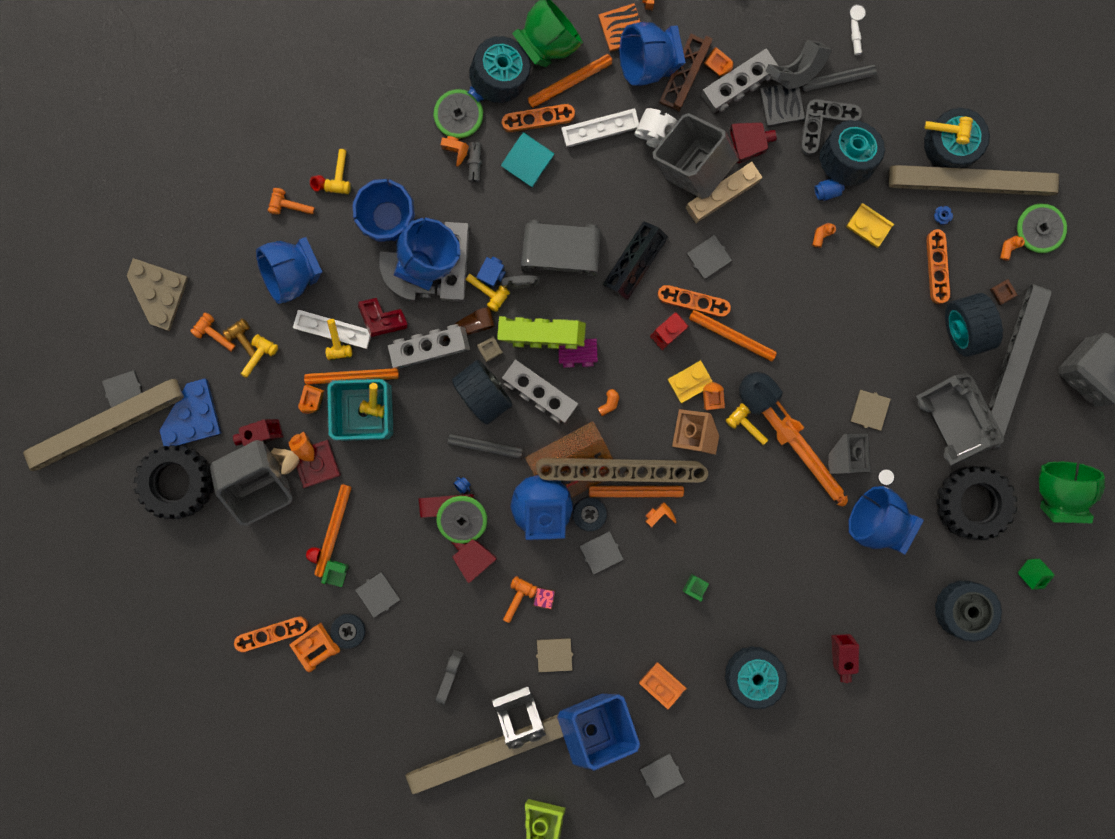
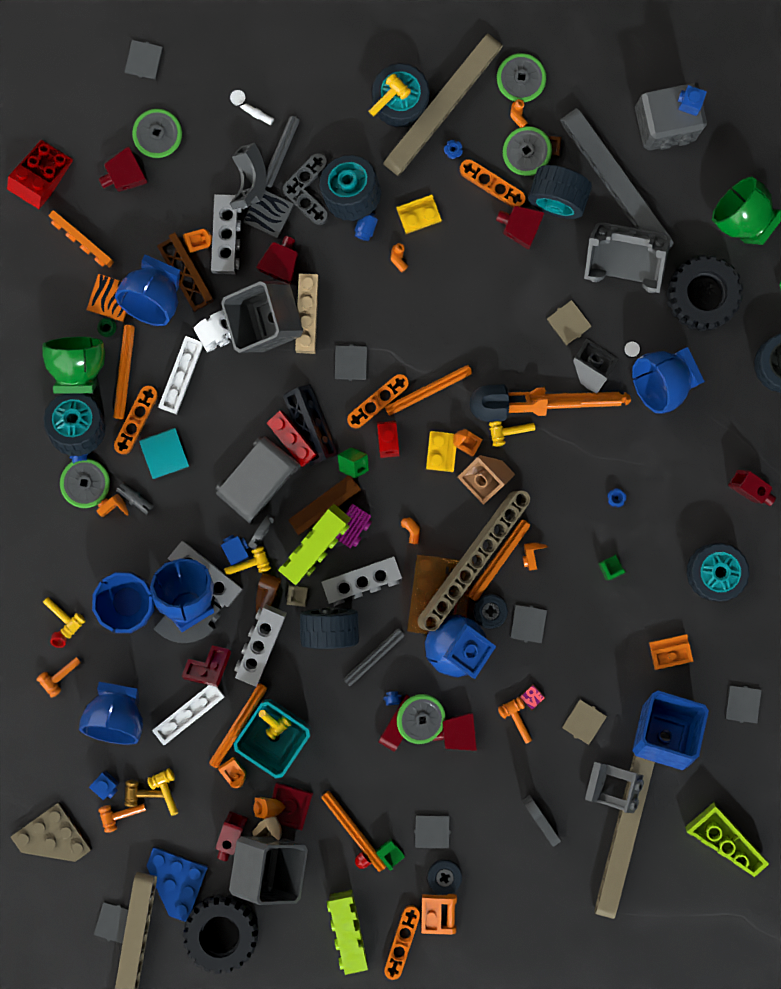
camera: 60 degrees left, 0 degrees up
(227, 303) = (105, 785): none -> blue brick
(247, 584) = (348, 932): none -> lime wedge
(336, 351) = (208, 722): yellow piece -> none
(594, 322) = (315, 510): none -> reddish brown fence
(598, 36) = (106, 321): none -> dark green plate
(614, 253) = (292, 438): none -> red plate
(630, 316) = (353, 462): none -> green panel
(754, 556) = (621, 497): none -> blue plate
(922, 313) = (521, 224): none -> dark red torso
(988, 263) = (519, 141): none -> dark grey wheel

